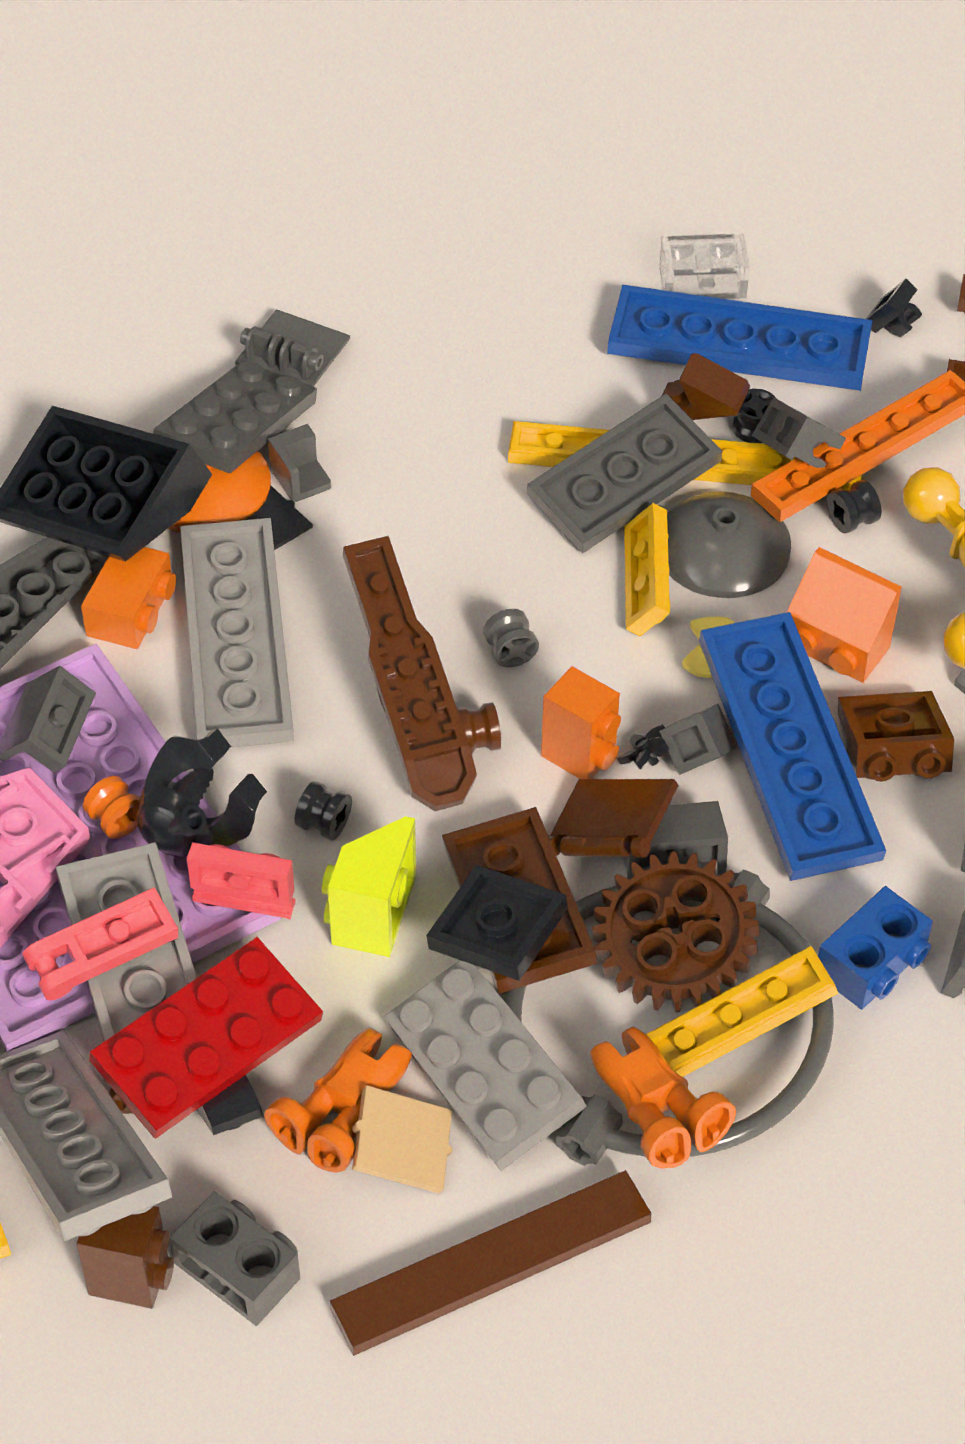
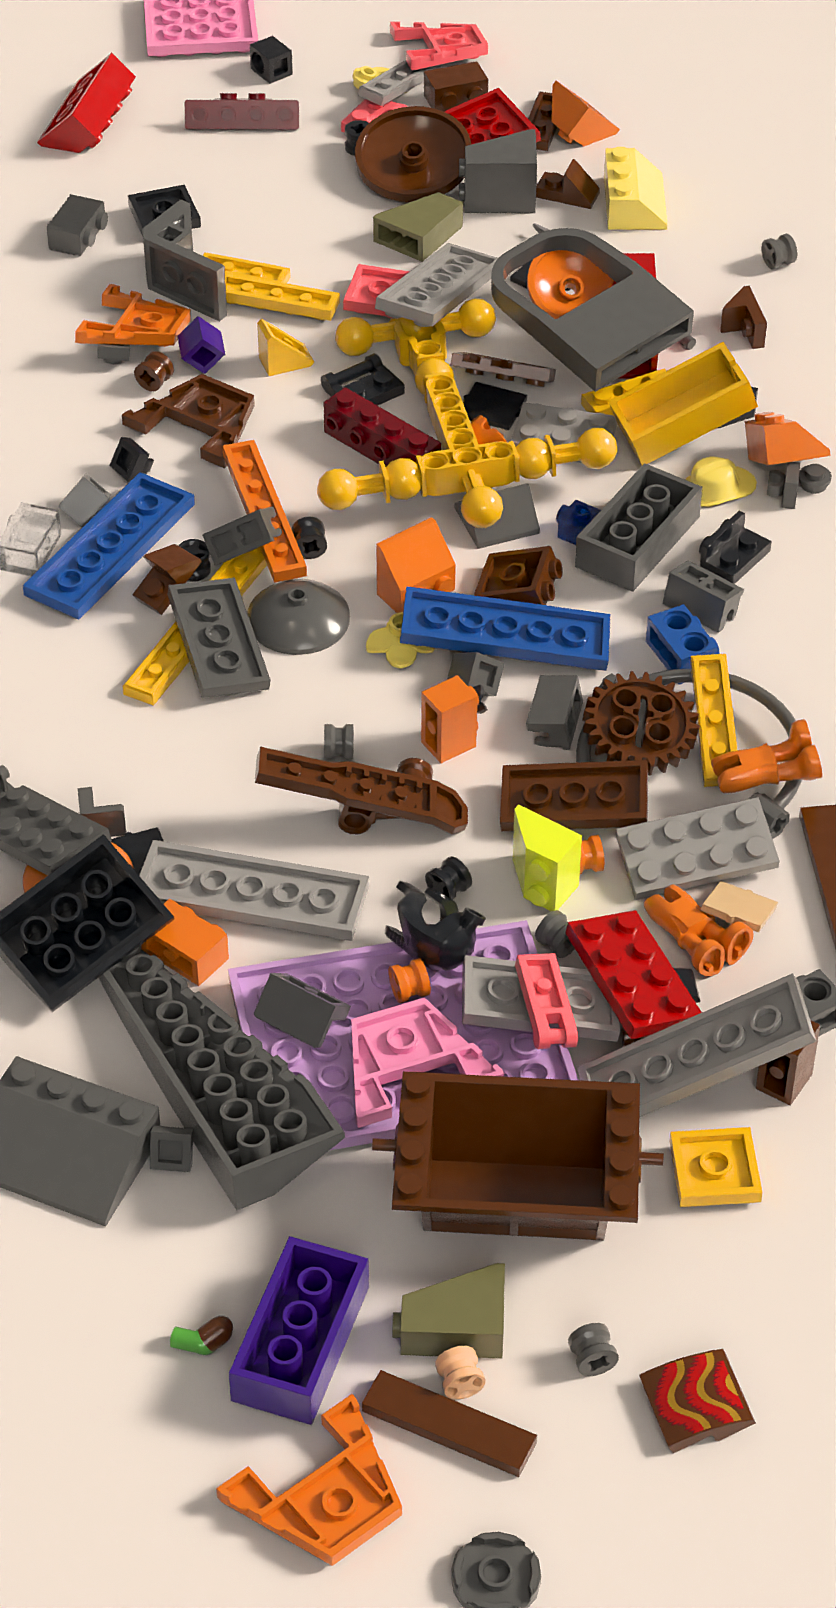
camera: 70 degrees left, 5 degrees down
(241, 880) = (514, 919): coral plate -> none
(282, 940) = (552, 933): none -> dark grey wheel
(412, 938) = (592, 854): none -> orange wheel
(497, 922) = (607, 798): black plate -> none
(612, 817) = (530, 727): reddish brown piece -> none
(646, 570) = (312, 654): yellow plate -> none
(801, 288) = (84, 500): none -> panel

